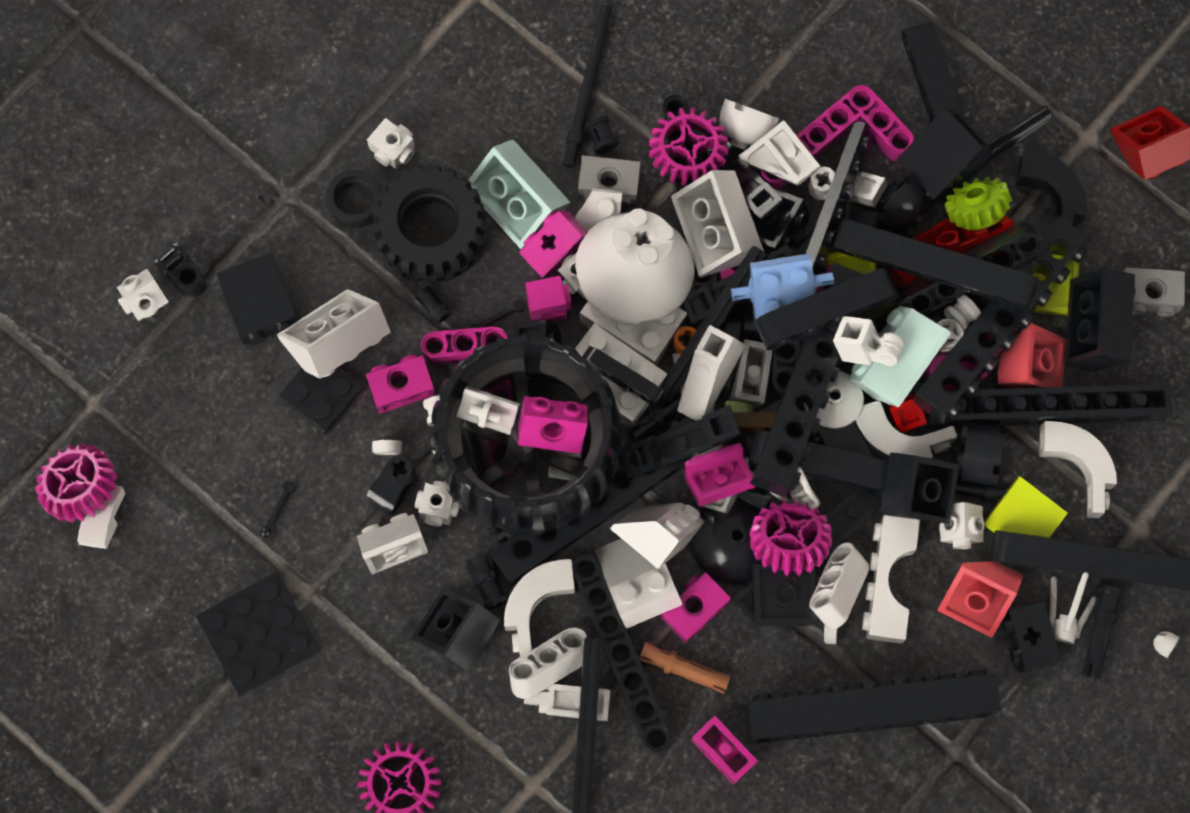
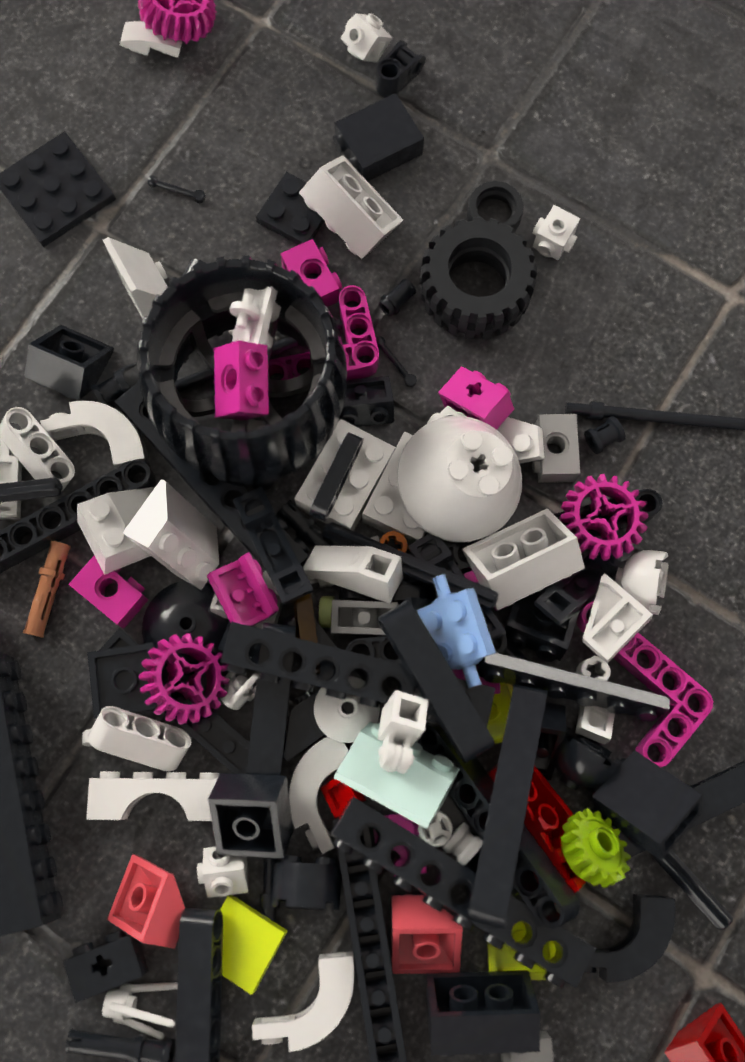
camera: 80 degrees right, 0 degrees up
(516, 191) = (530, 357): light aqua slope -> none
(548, 299) = (413, 398): dark pink brick -> none

